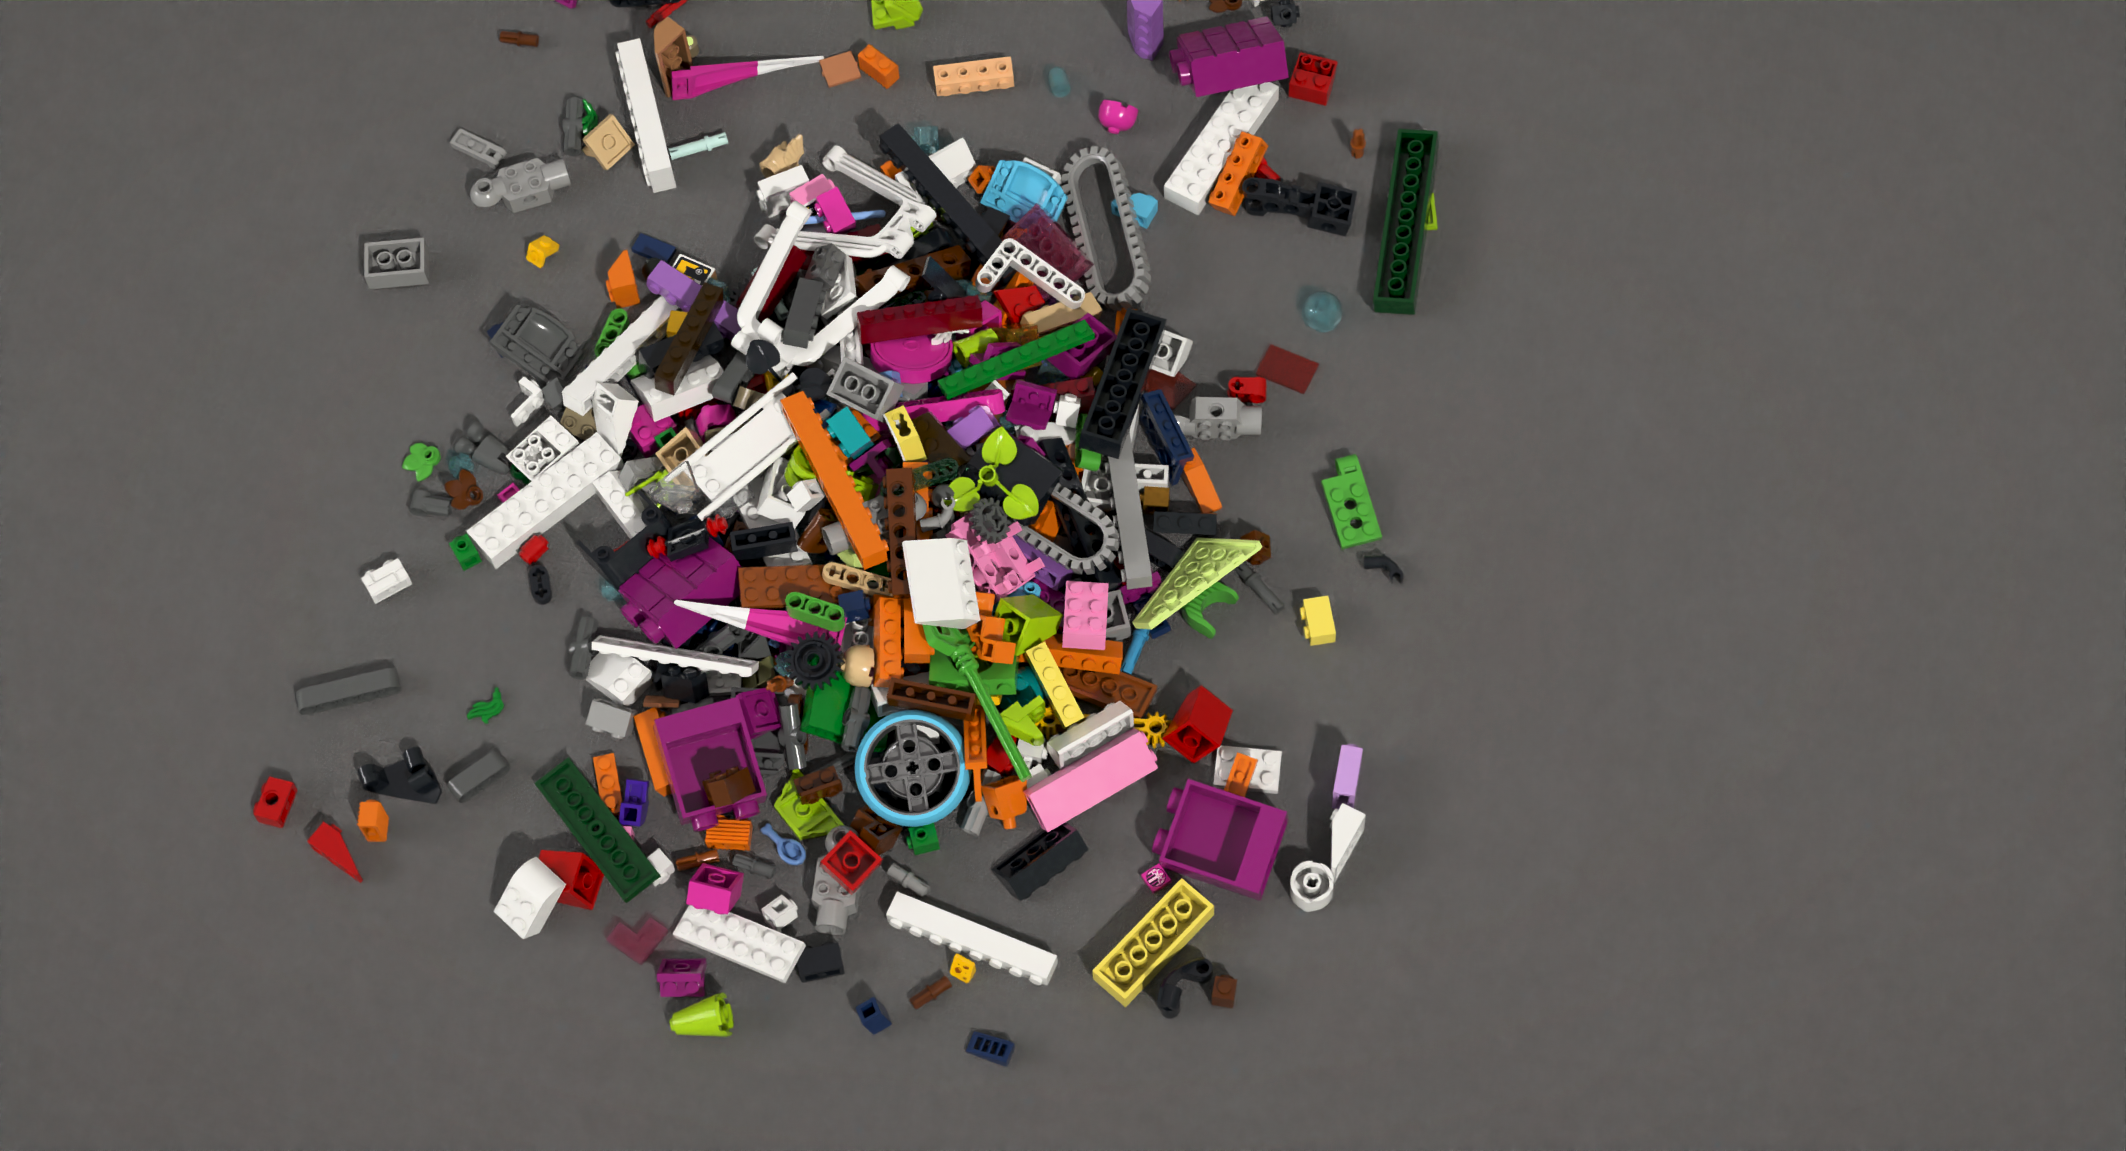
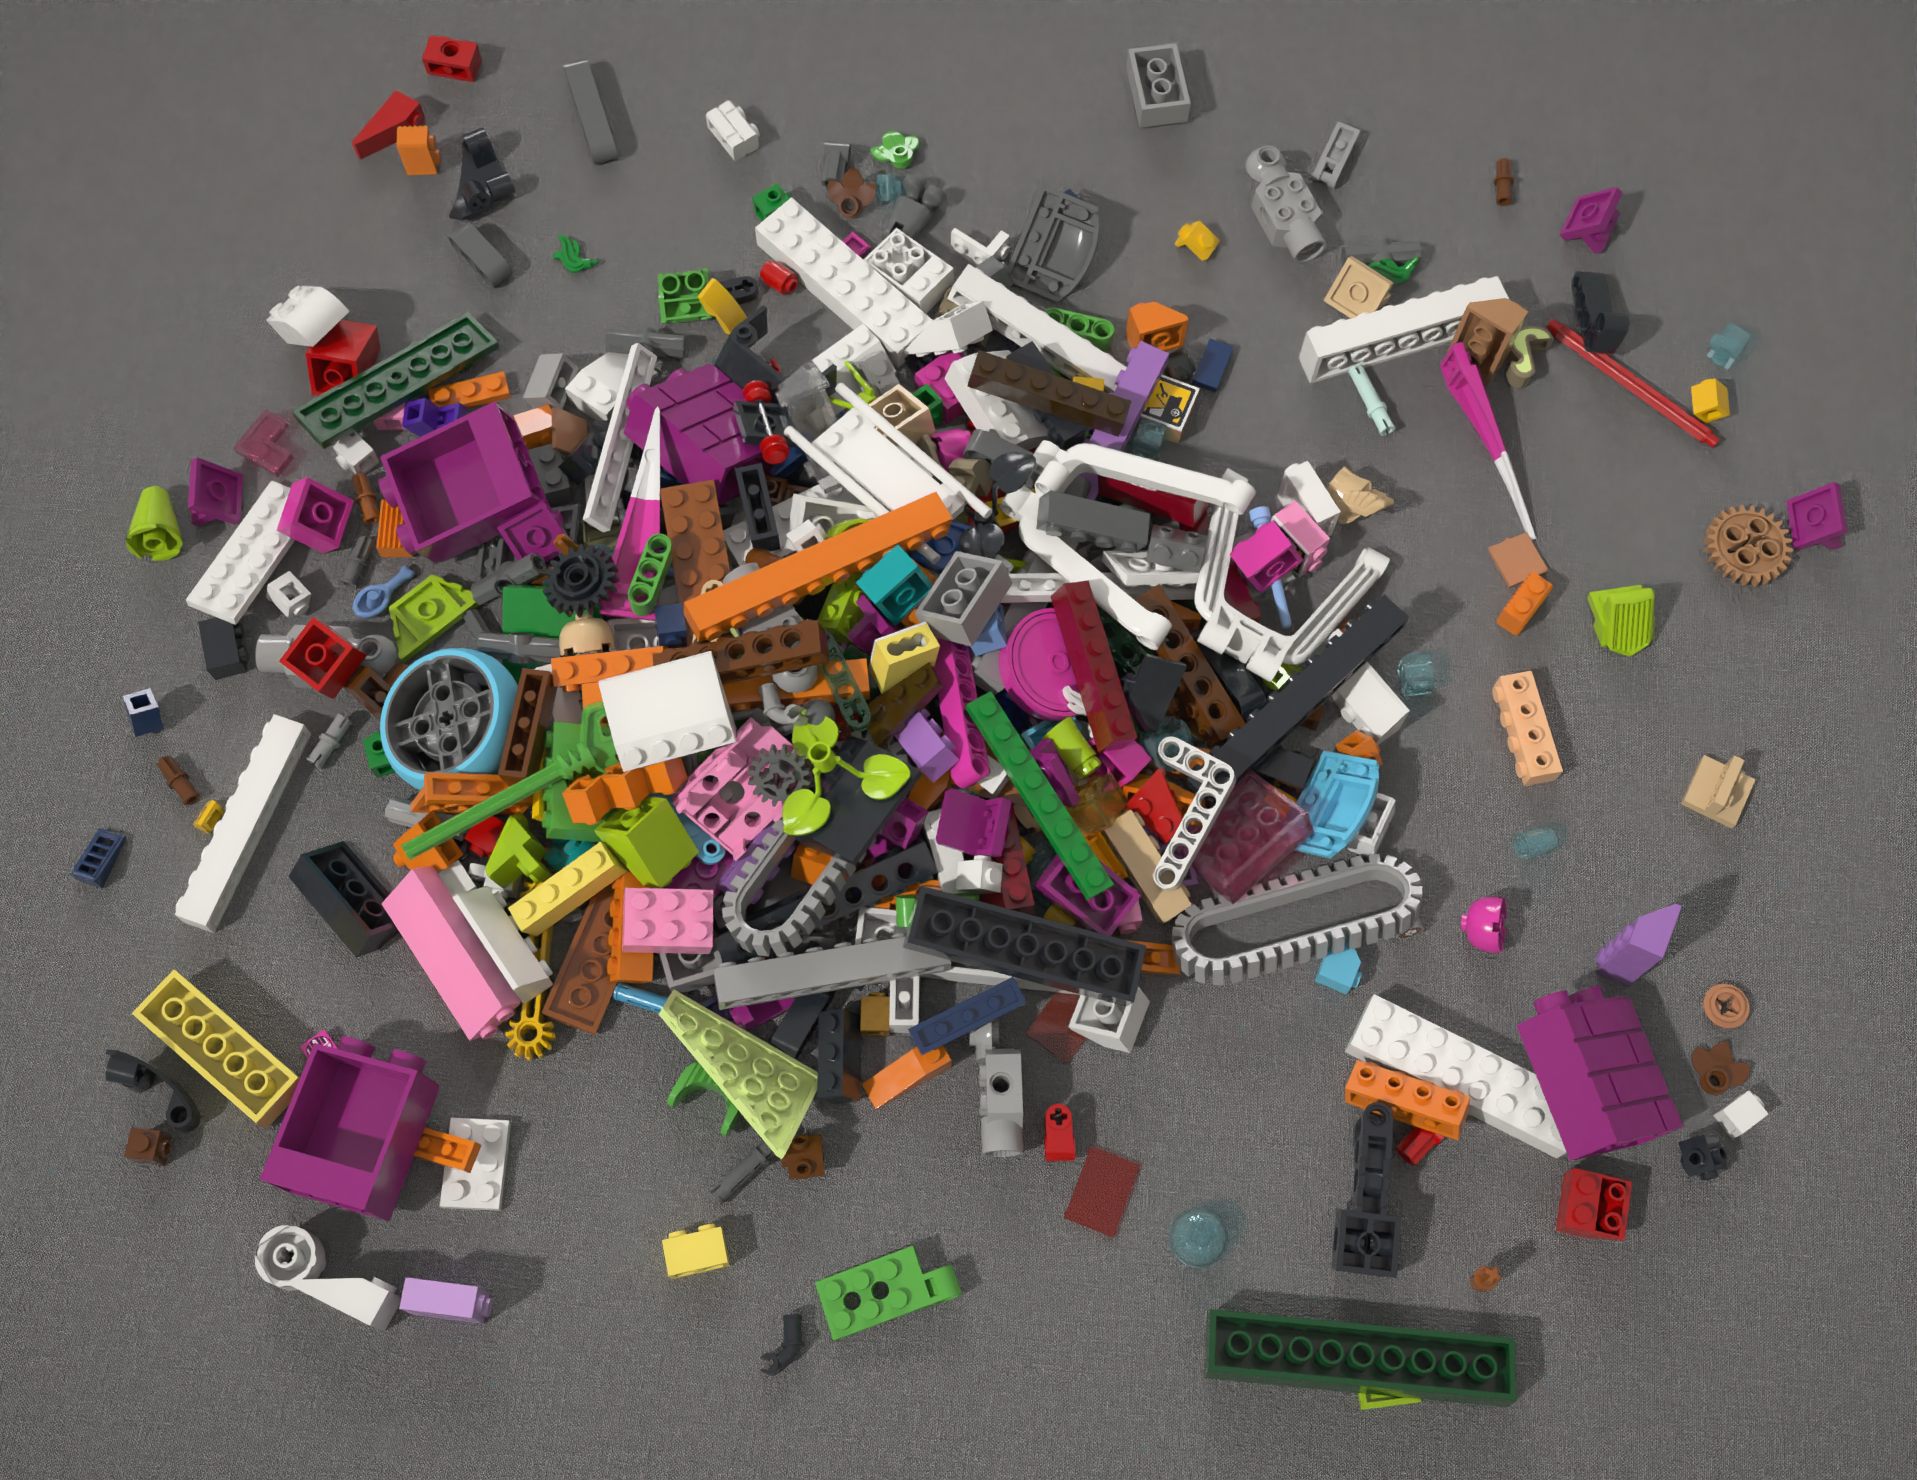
camera: 80 degrees right, 5 degrees up
(541, 617) = (680, 296): none -> bright green slope
(559, 587) = (722, 305): none -> yellow slope
(728, 786) = (416, 501): reddish brown brick -> none
(818, 785) = (453, 620): reddish brown bracket -> none
(1198, 725) = (529, 1091): red slope -> none

